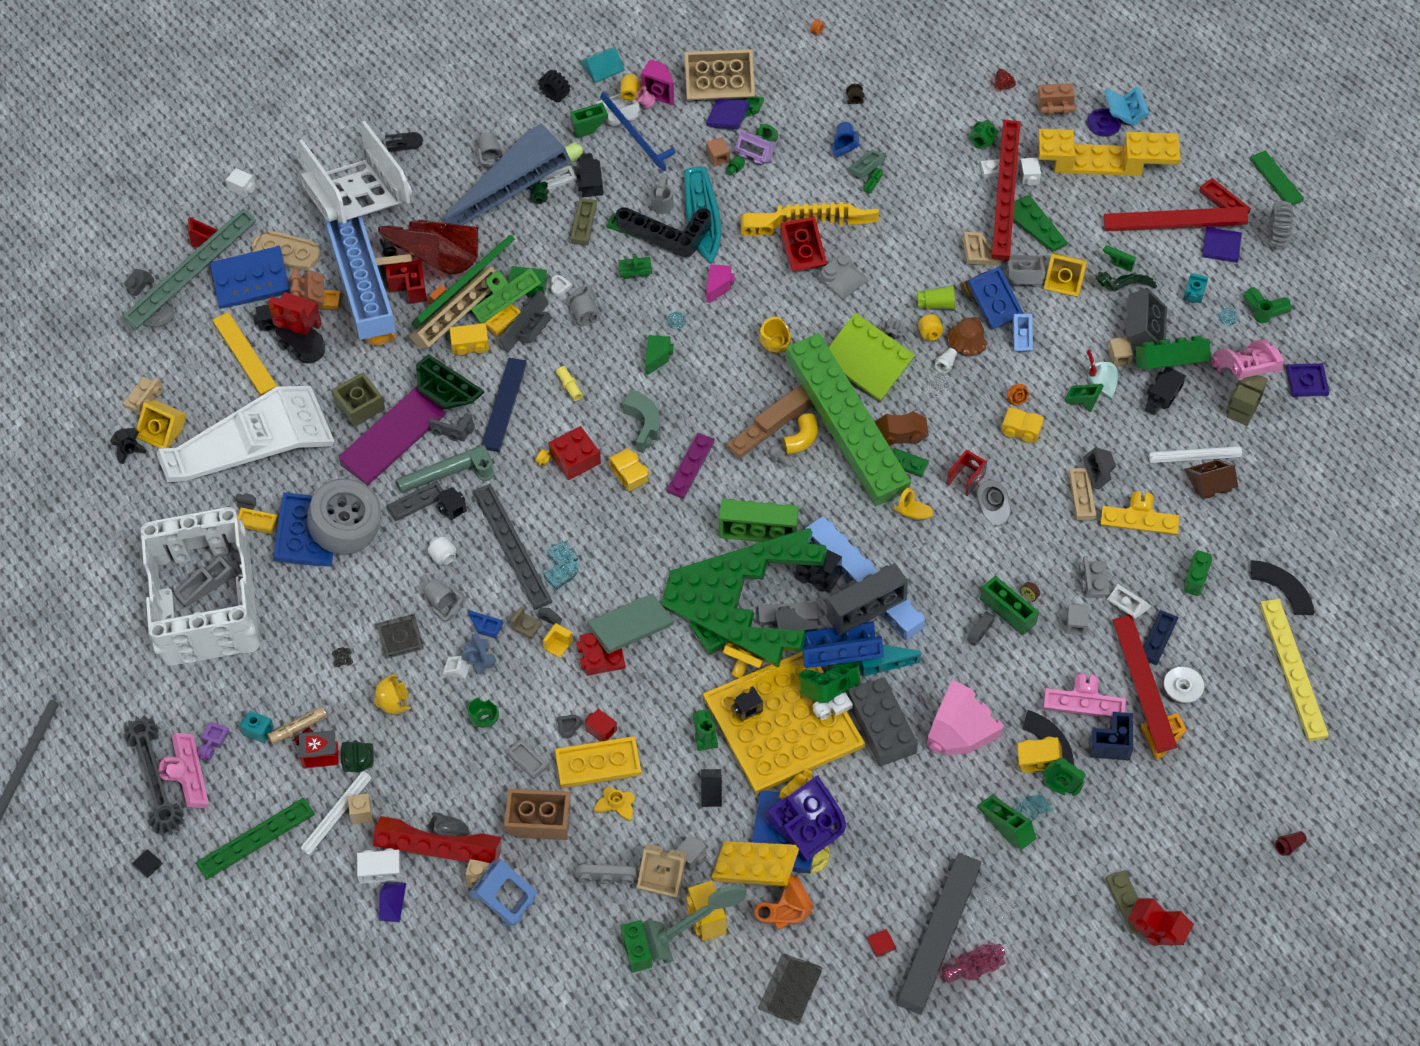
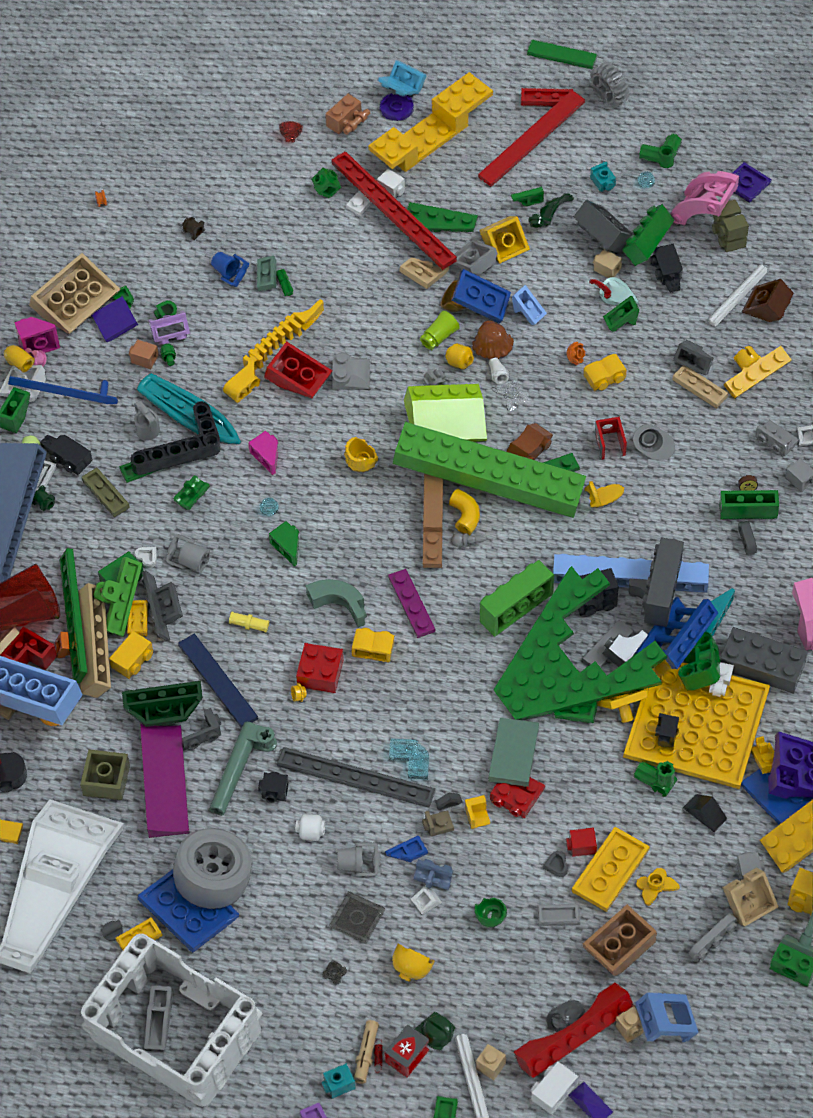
camera: 45 degrees left, 0 degrees up
(415, 501) = (242, 809): dark grey tile -> none
(1222, 244) = (581, 132): dark purple tile -> none

